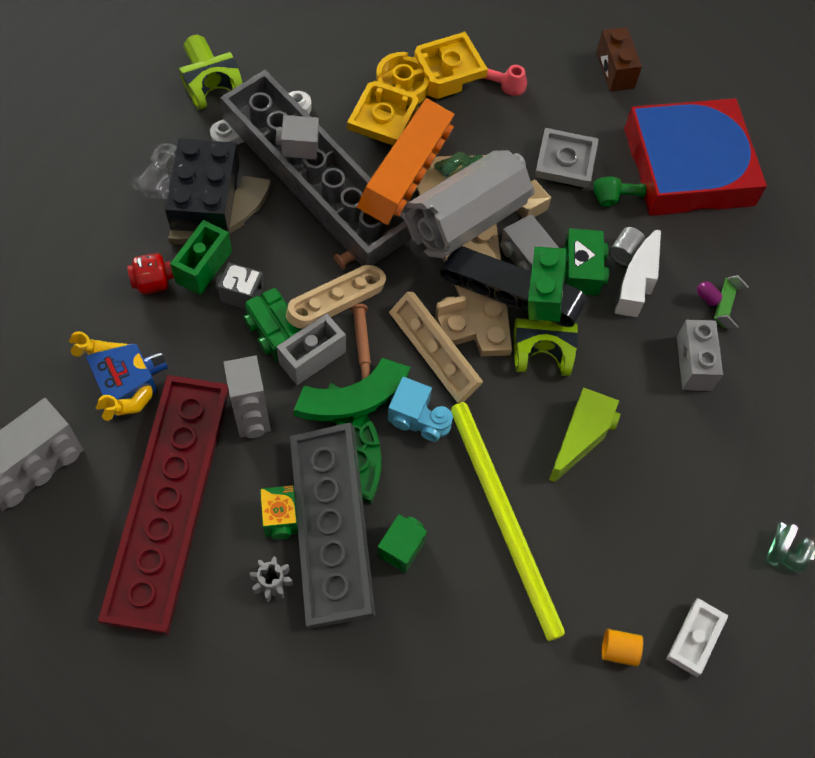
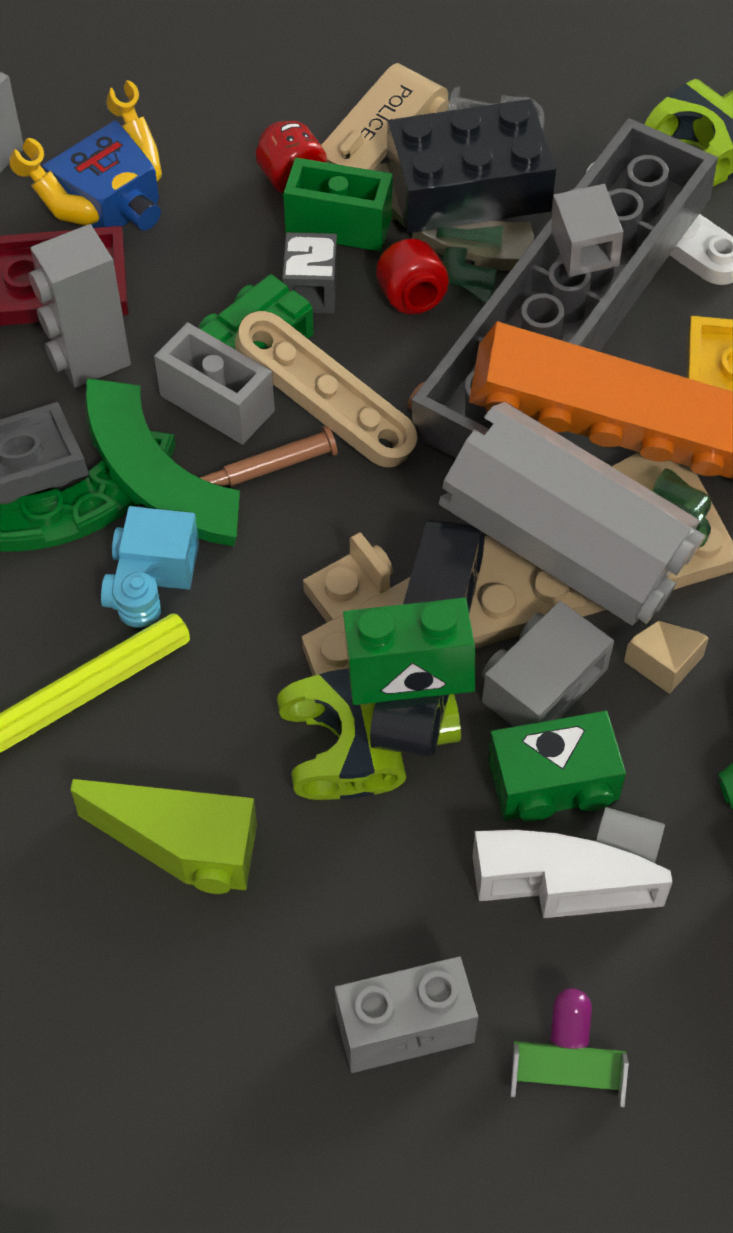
camera: 80 degrees right, 5 degrees down
(139, 219) = (364, 130): none -> tan door
(263, 219) = (474, 278): none -> clear green piece
(263, 238) = (412, 276): none -> red head
(435, 347) = (271, 575): tan plate -> none

